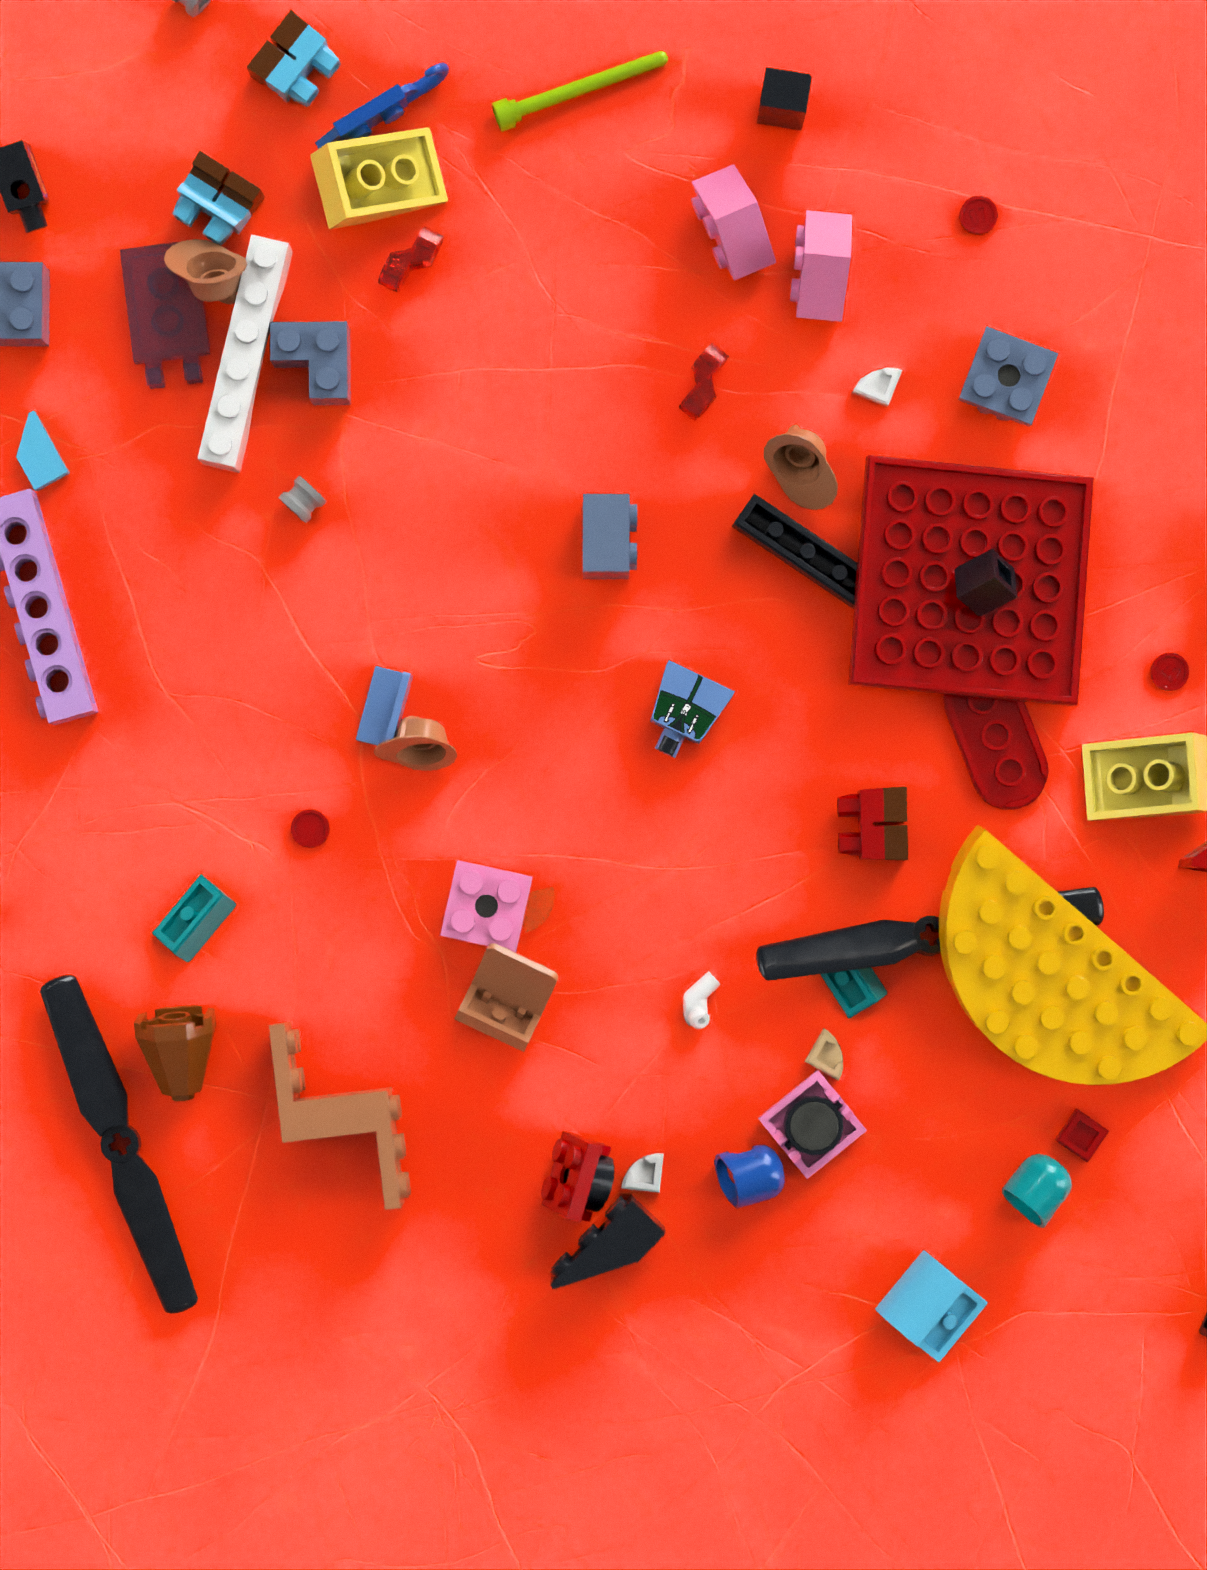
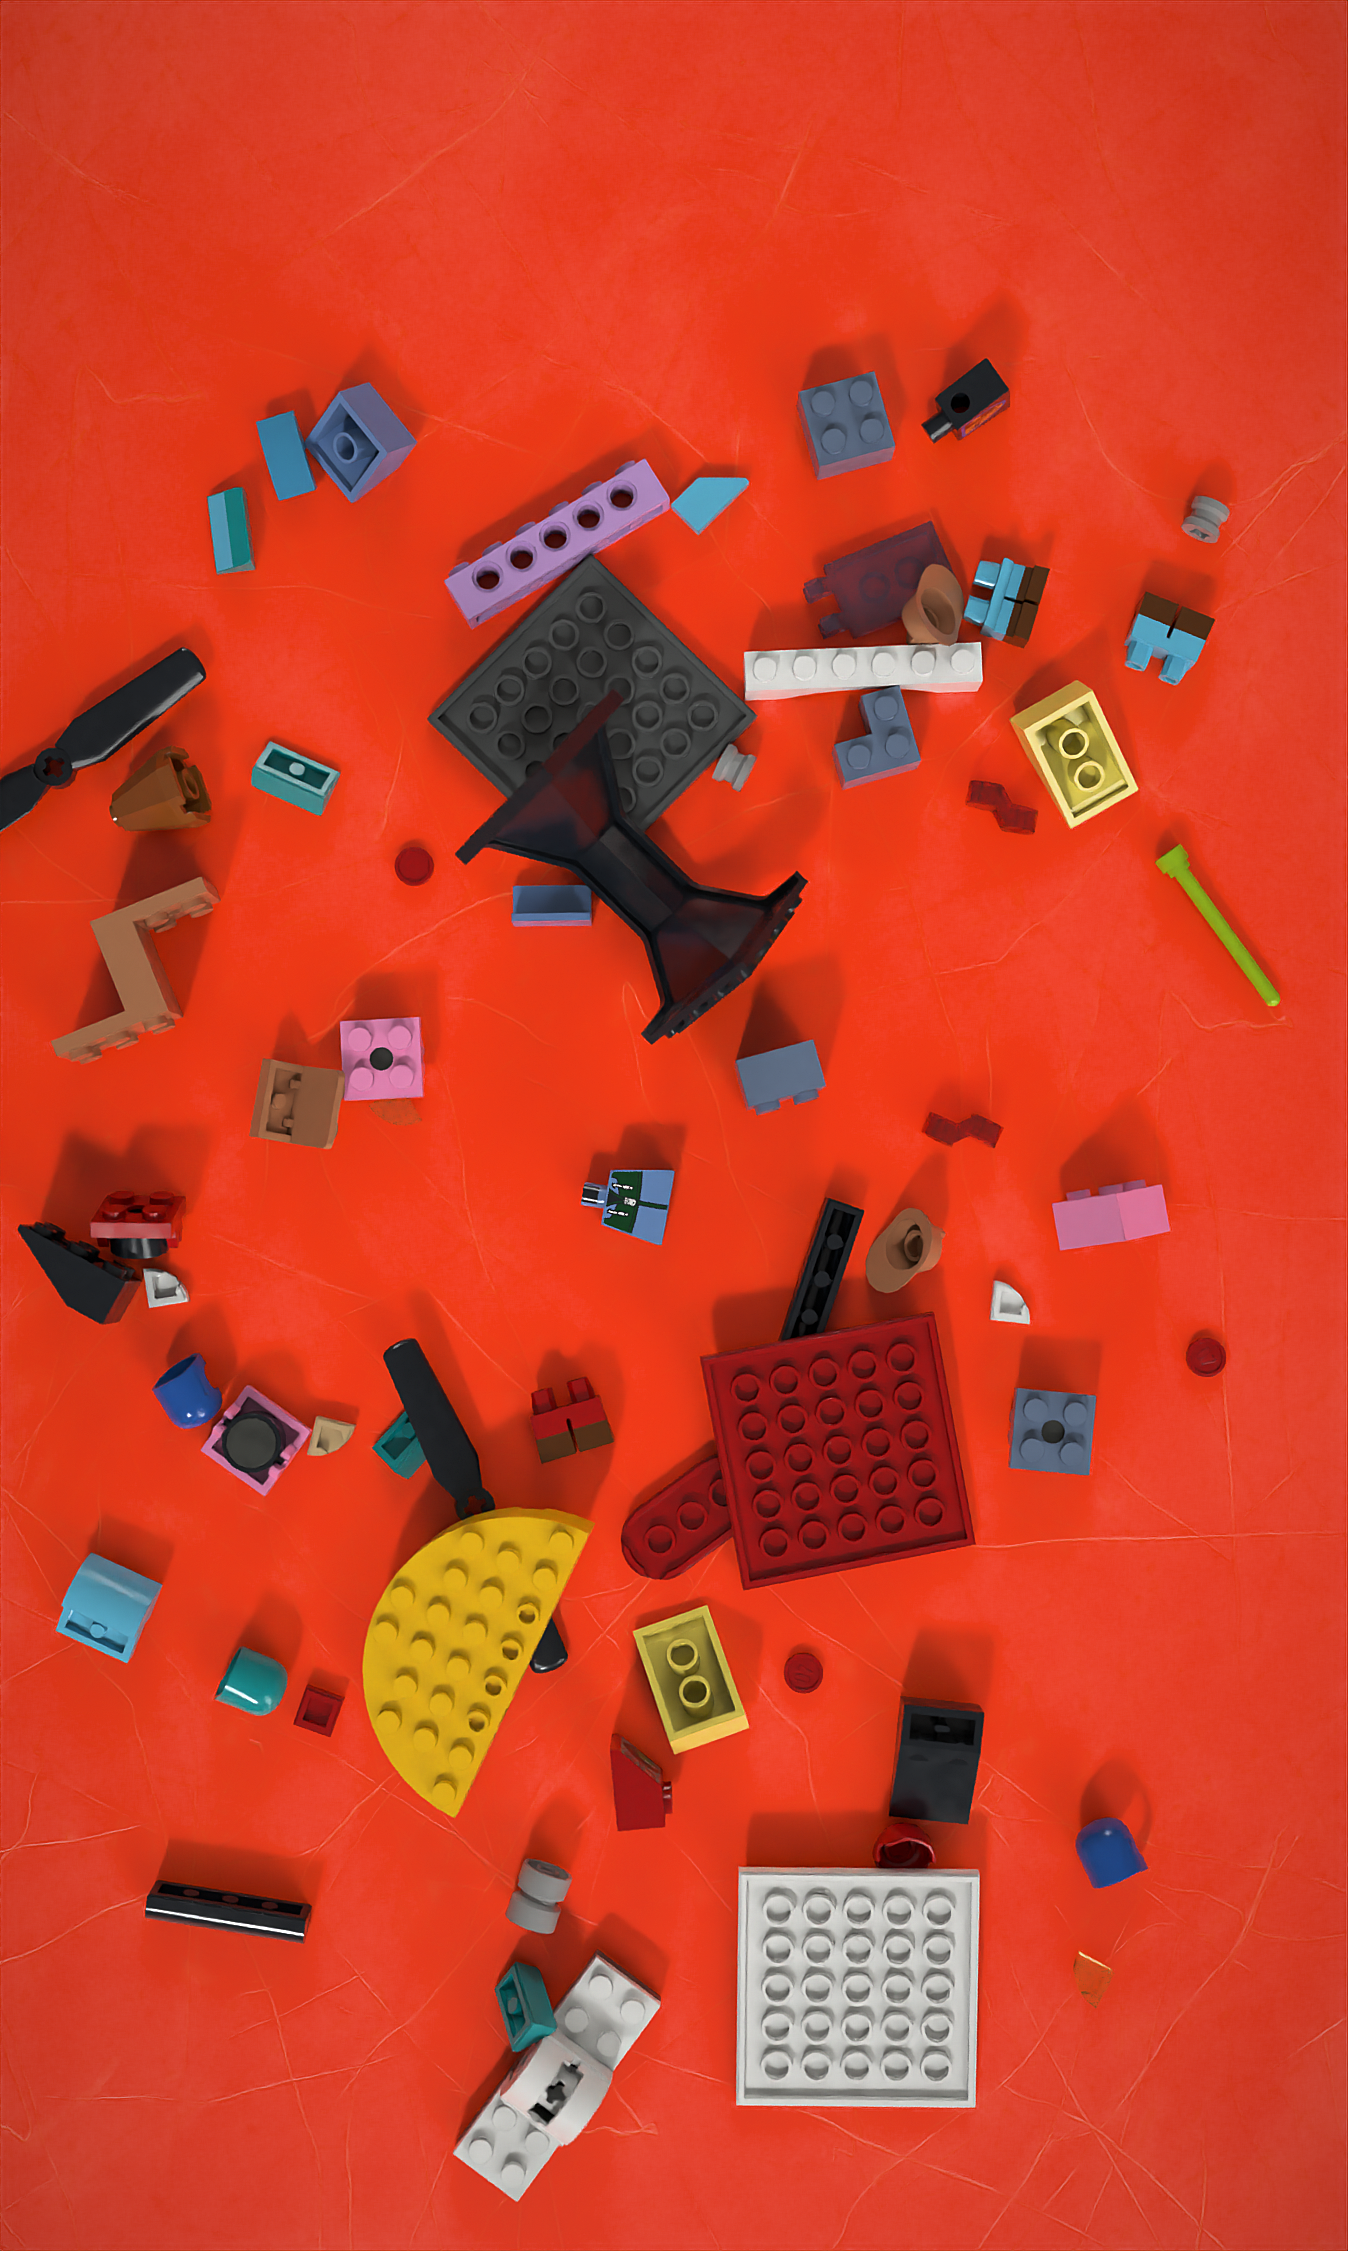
camera: 75 degrees right, 0 degrees up
(216, 621) = (563, 664): none -> dark grey tile
(385, 107) = (1144, 739): blue plate -> none
(418, 745) = (523, 948): nougat piece -> none
(454, 579) = (694, 934): none -> black panel
(695, 1001) = (346, 1292): white arm -> none
(734, 221) = (1130, 1115): bright pink brick -> none
(784, 99) = (1266, 1130): black panel -> none
(985, 582) = (838, 1465): black panel -> none

